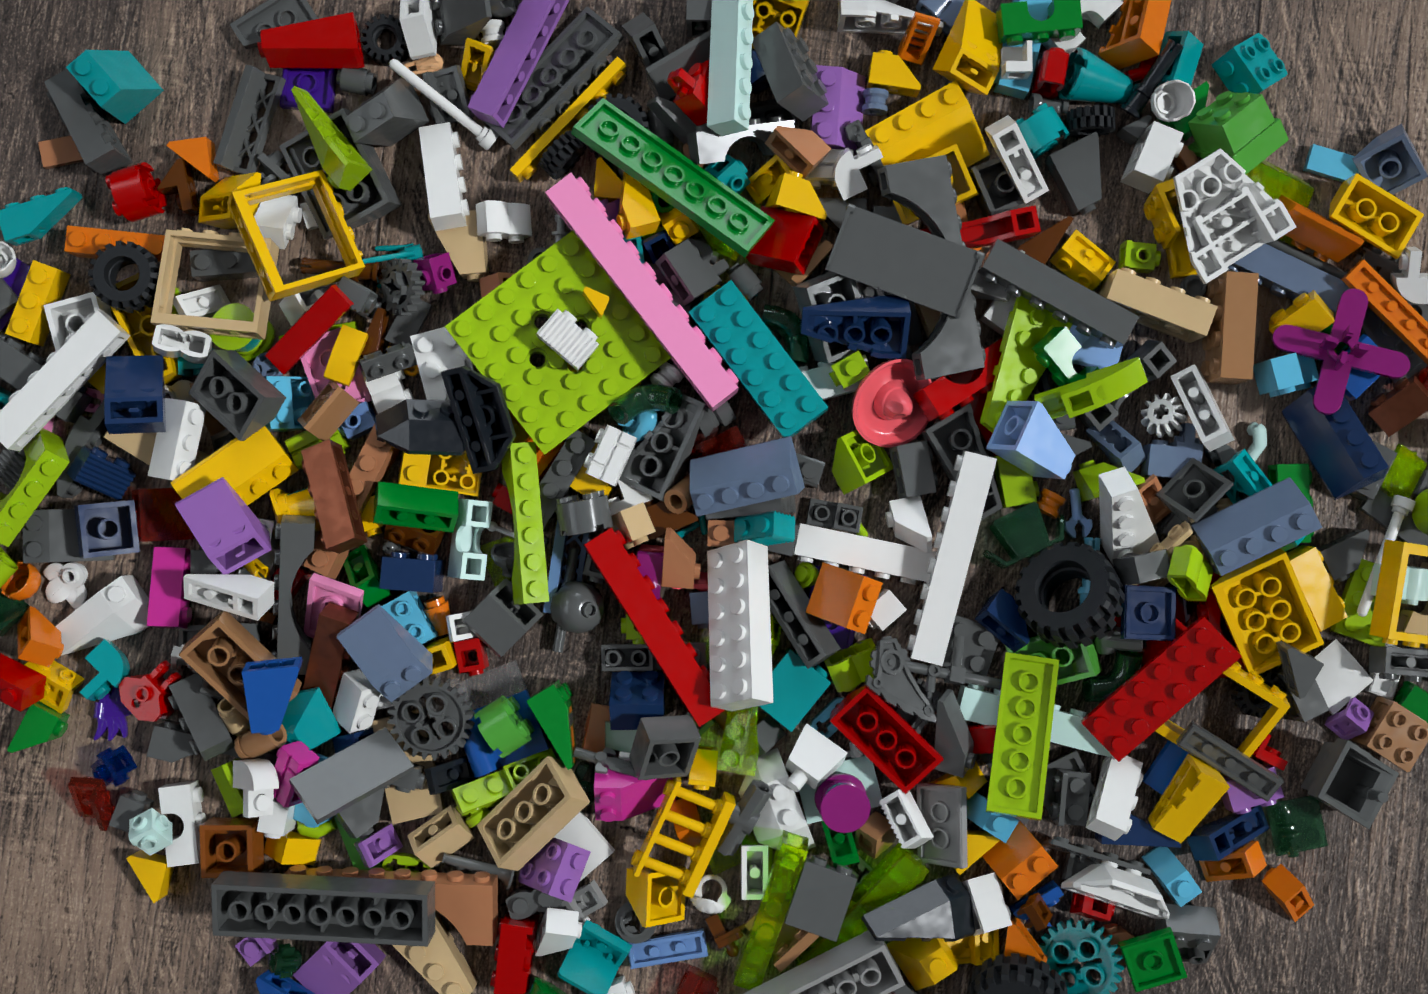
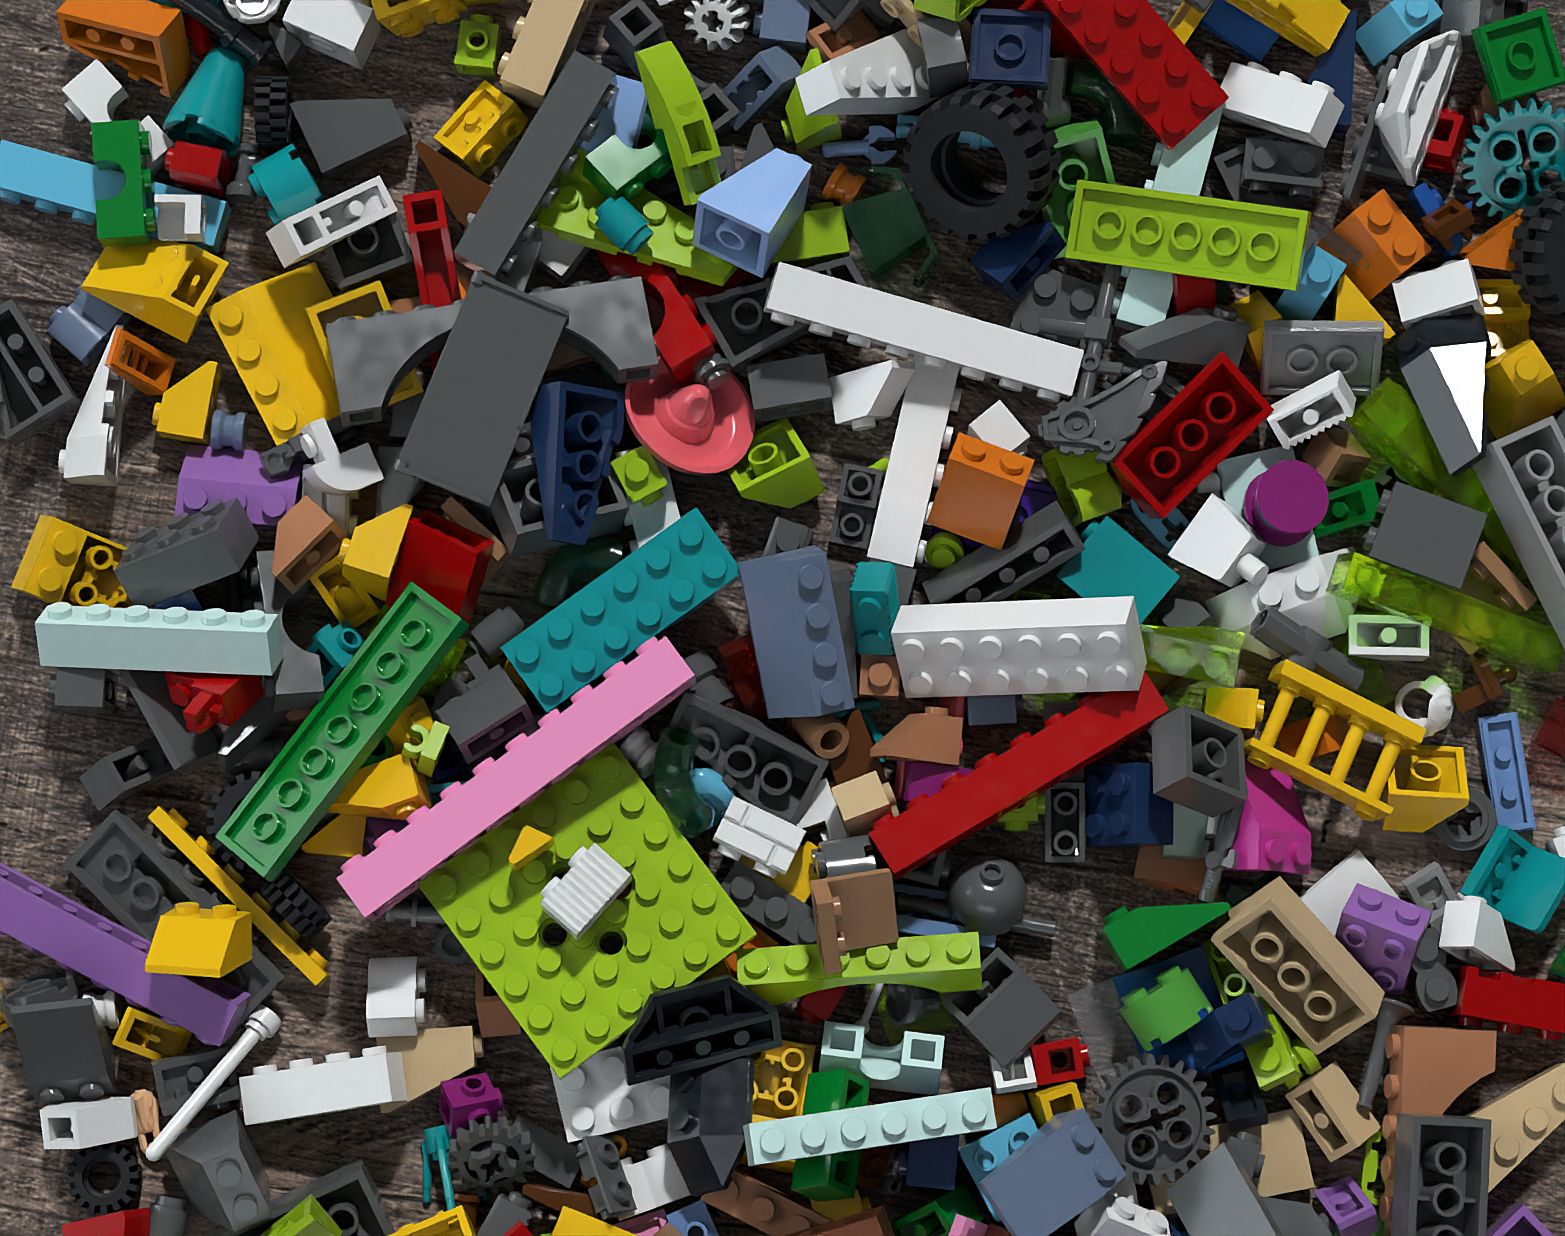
camera: 85 degrees left, 5 degrees down
(414, 531) = (869, 1126): none -> light aqua brick
(488, 770) = (1230, 1030): none -> dark blue slope
(532, 90) = (200, 941): none -> yellow slope
(556, 517) = (853, 914): none -> medium nougat bracket
(662, 235) = (430, 747): none -> lime tile
(921, 417) = (712, 371): none -> dark grey plate
(1009, 847) = (1329, 230): none -> dark grey piece
(1019, 354) = (623, 225): none -> teal brick

